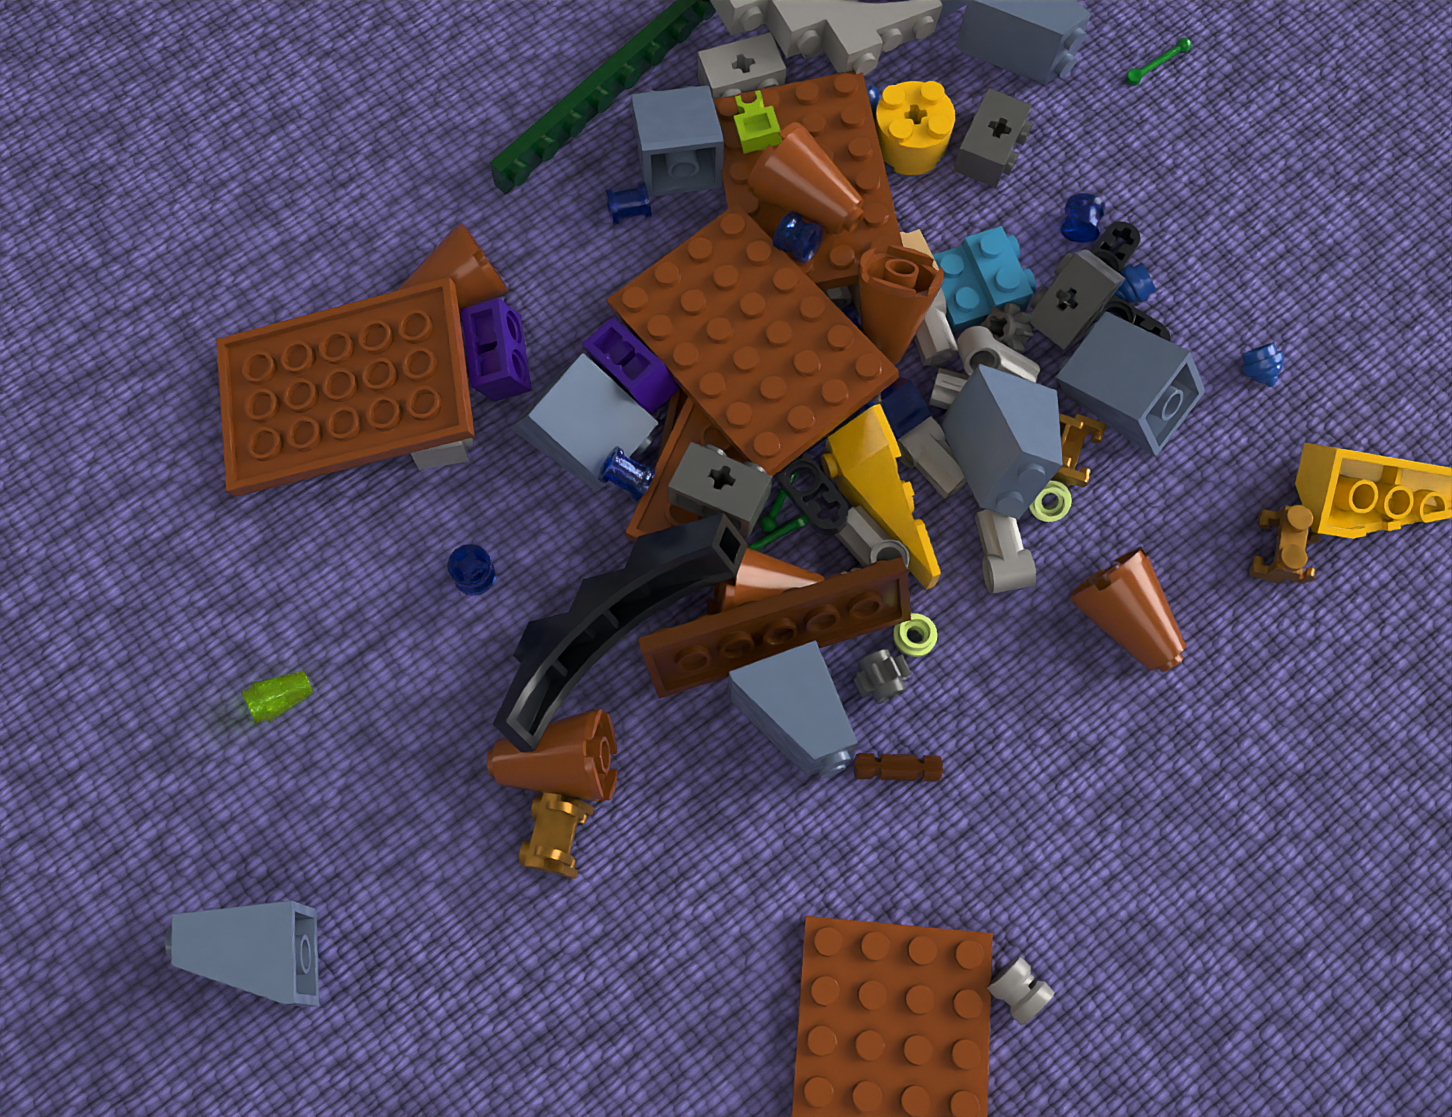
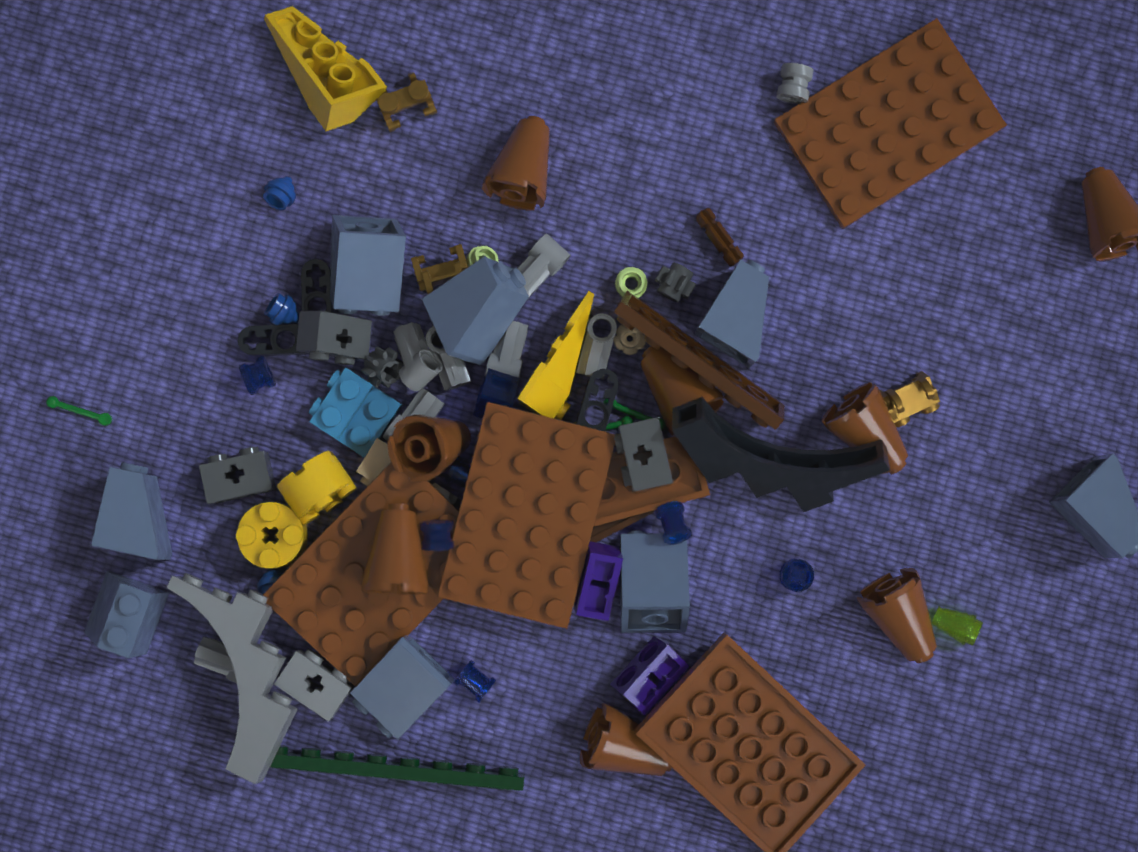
camera: 125 degrees left, 15 degrees up
(341, 640) = (901, 613): none -> dark orange cone
(756, 125) = (366, 629): lime plate -> none
(932, 186) = (316, 487): none -> yellow brick

